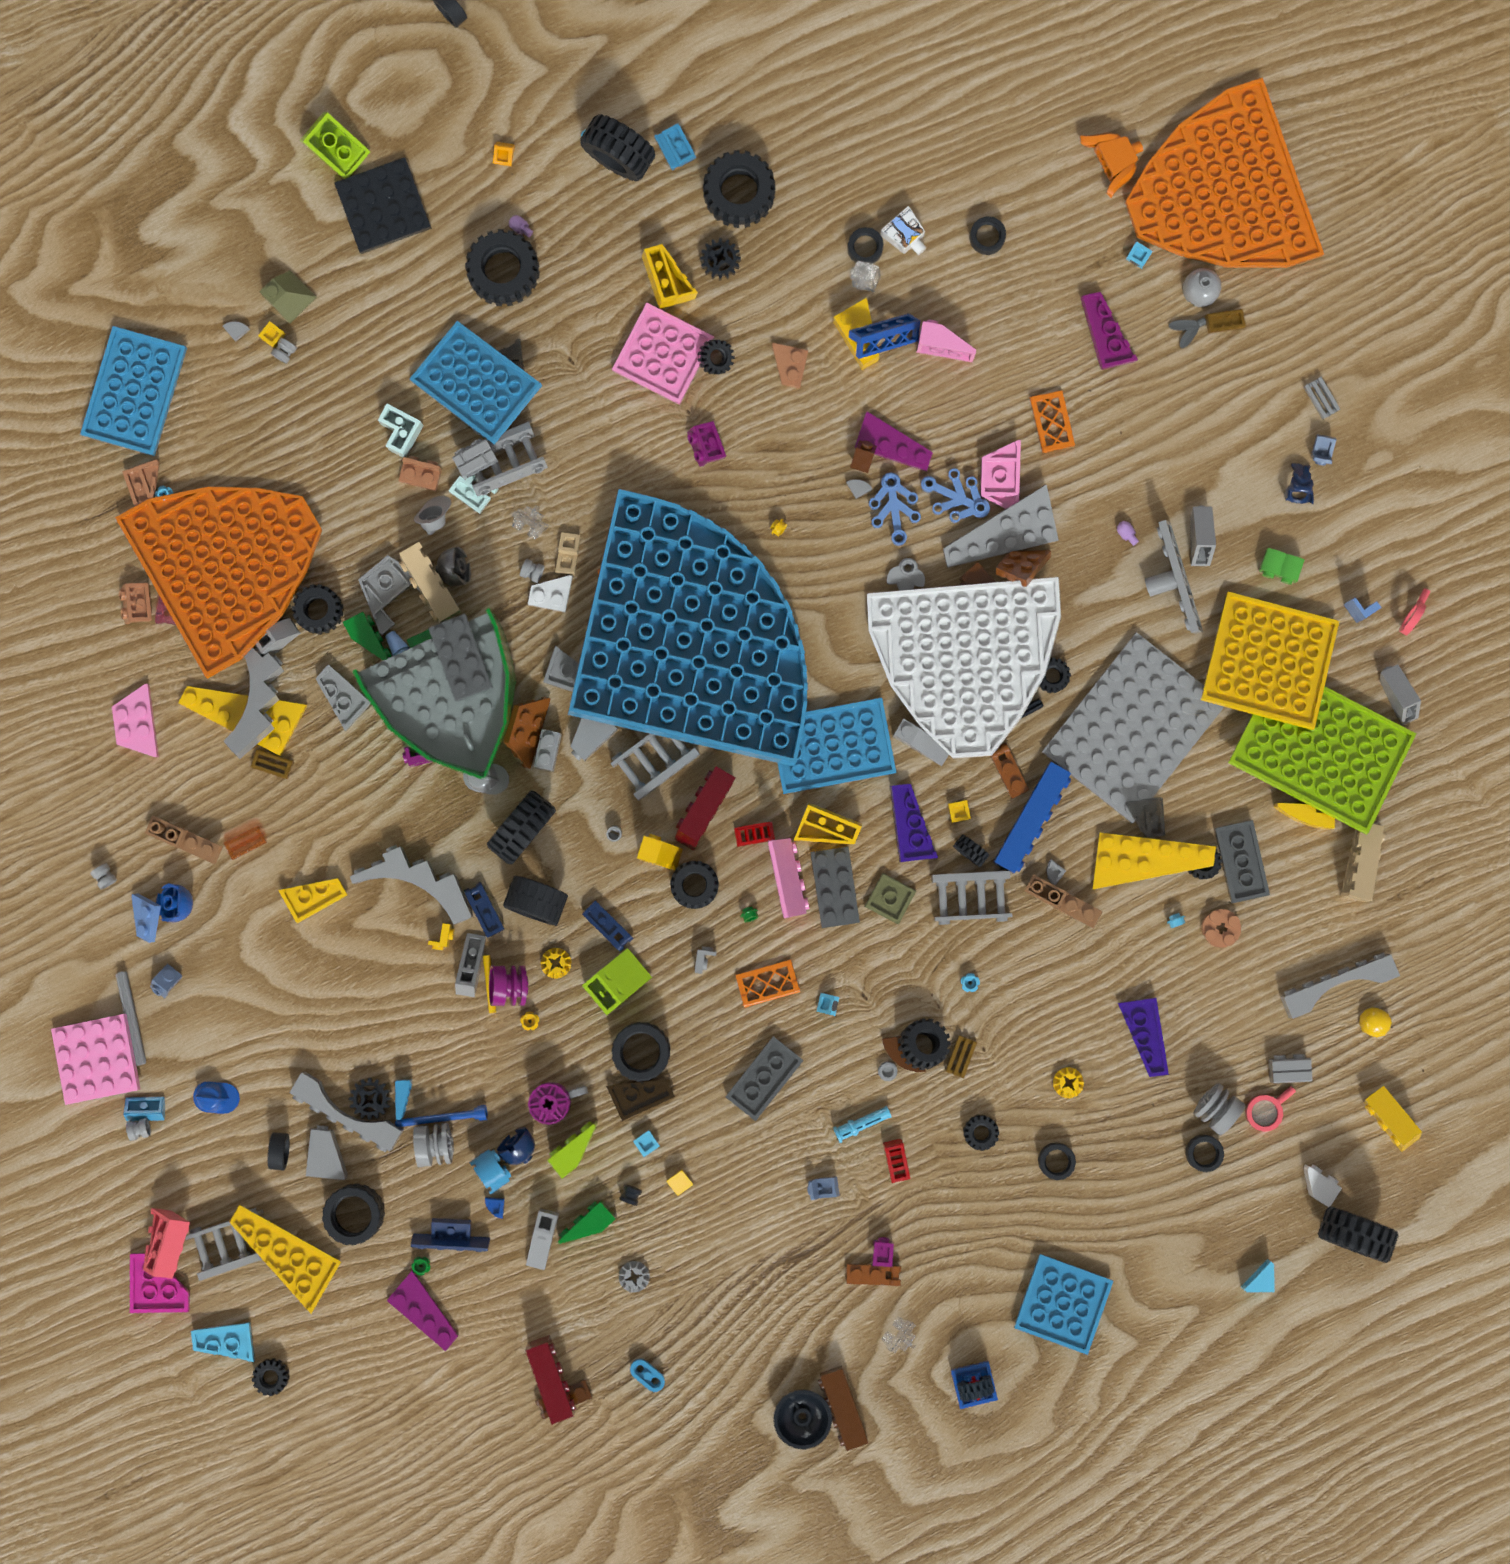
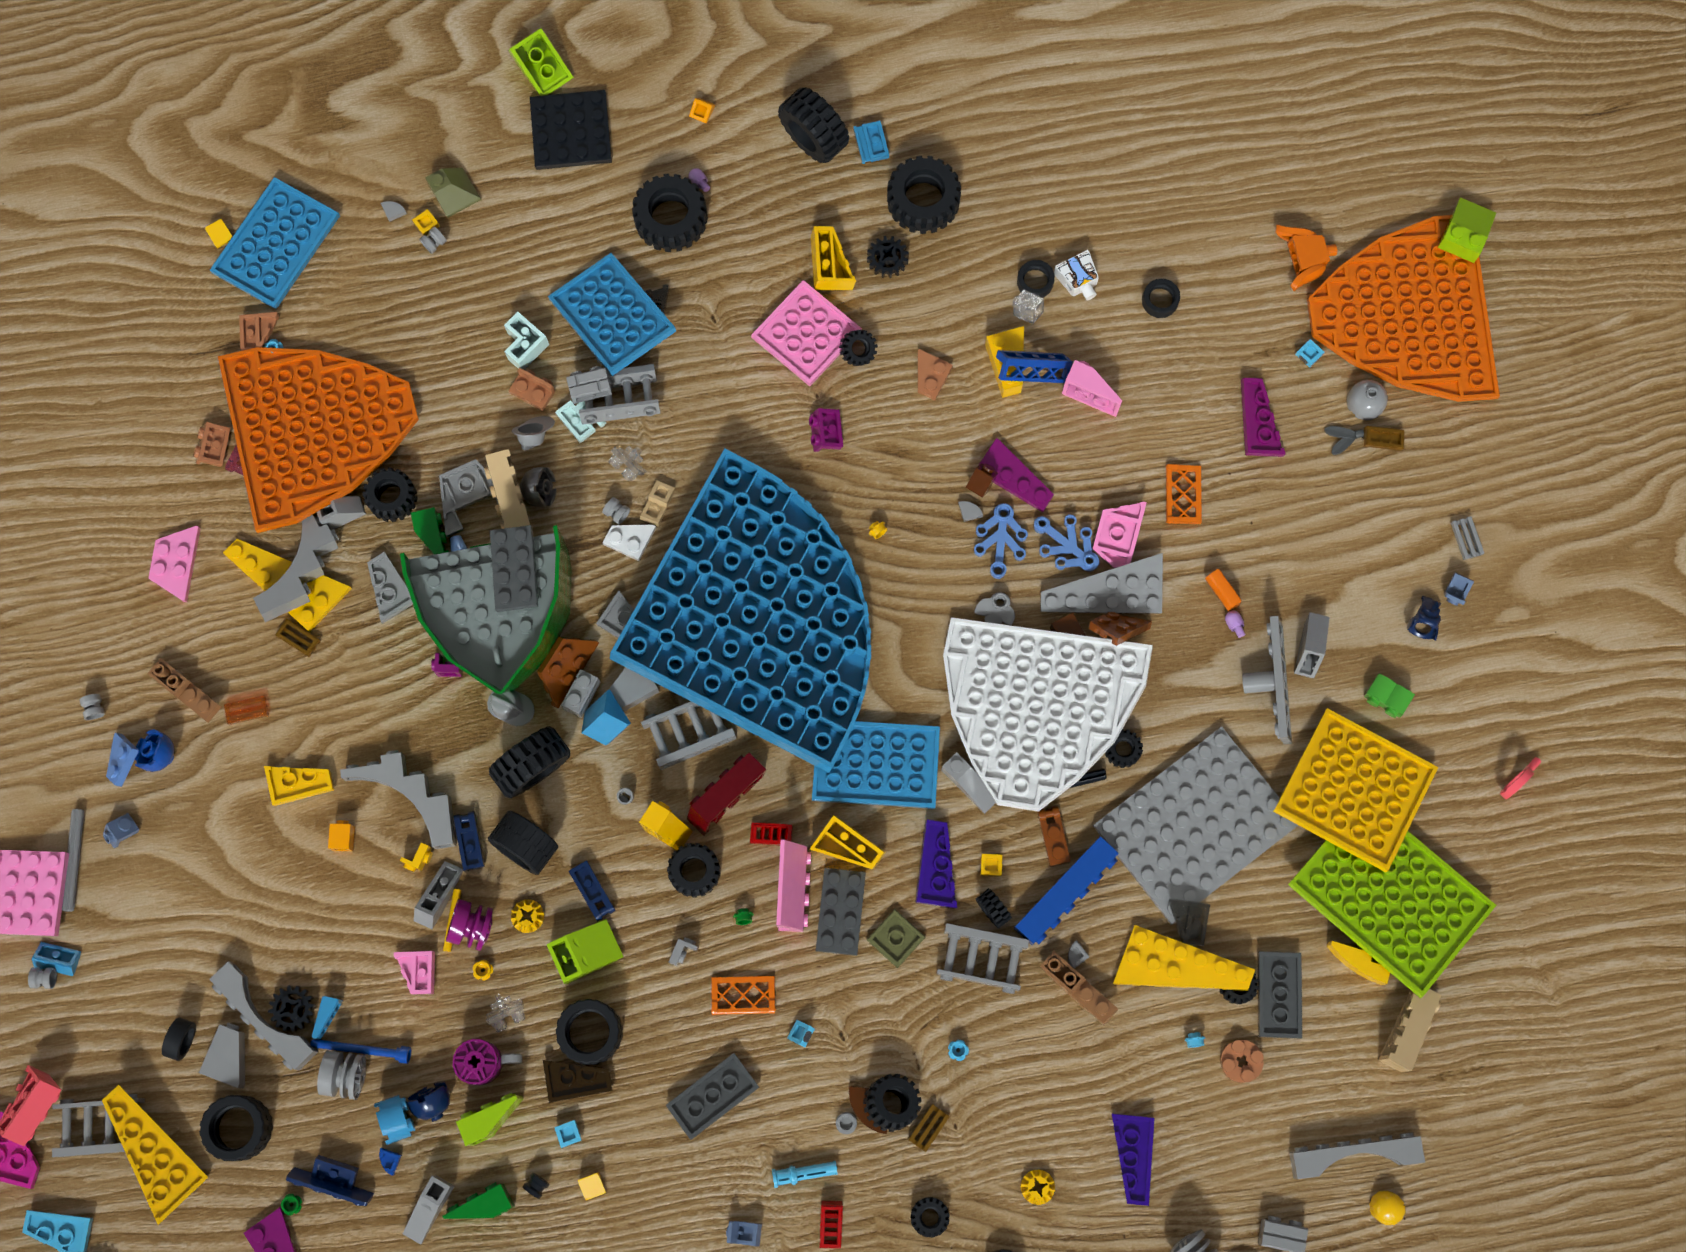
camera: 15 degrees right, 10 degrees down
(77, 395) = (219, 233): none -> yellow slope
(216, 1097) = (134, 966): blue piece -> none
(368, 935) = (341, 836): none -> light orange brick
(472, 1036) = (418, 970): none -> bright pink wing
(558, 1051) = (496, 1017): none -> clear hips
(576, 769) = (604, 719): none -> dark azure slope
(1109, 504) = (1223, 590): none -> orange brick
(1261, 96) = (1467, 230): none -> lime slope
(1357, 611) = (1460, 762): medium blue panel -> none
(1400, 694) = (1487, 860): light grey slope -> none

